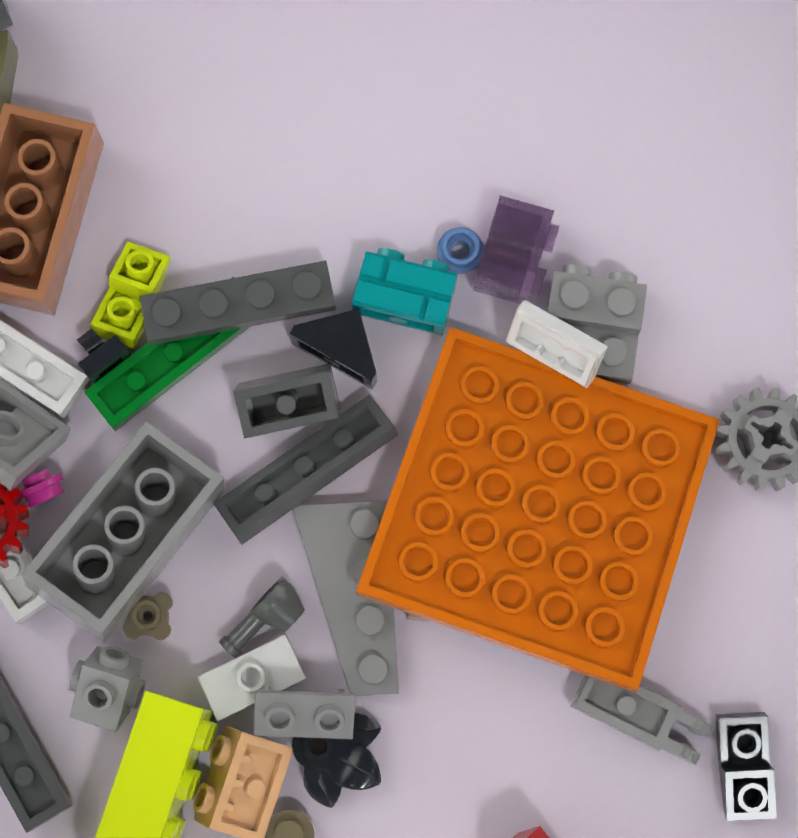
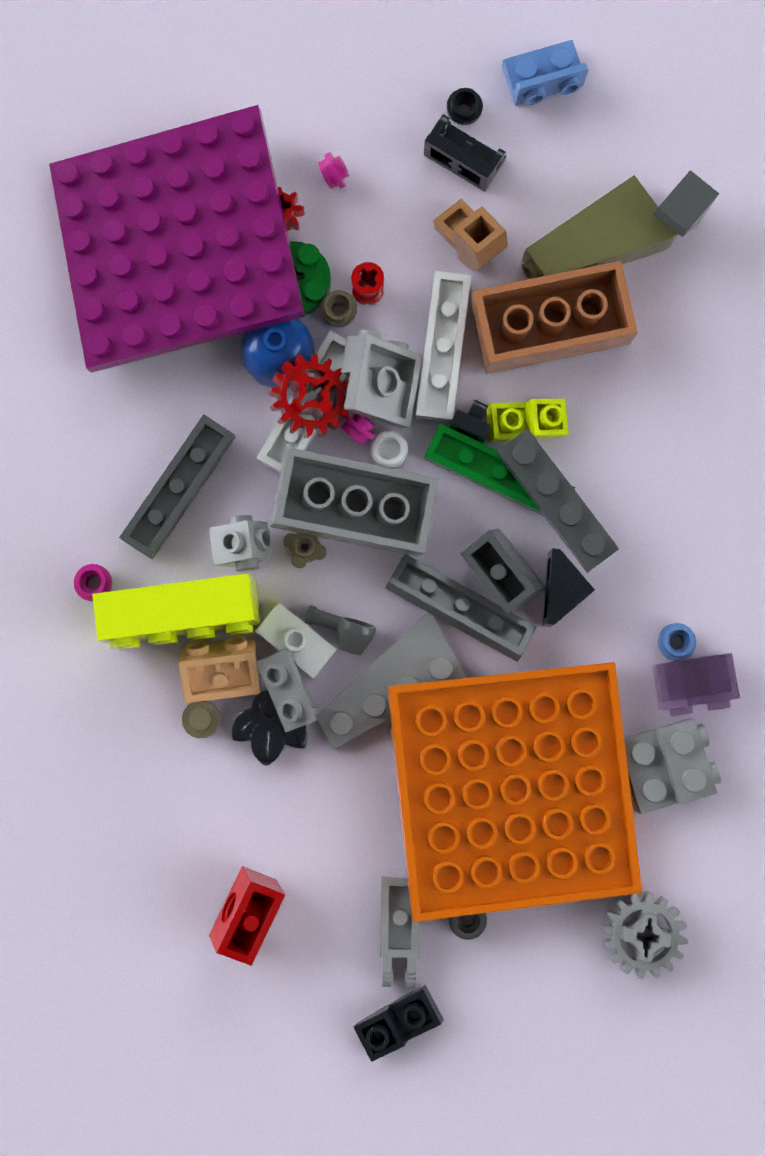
camera: 65 degrees right, 5 degrees up
(83, 464) = (389, 449): none -> white tile
(405, 291) = (625, 616): teal brick -> none
(556, 343) = (639, 746): white plate -> none
(678, 632) = (471, 931): none -> dark grey plate

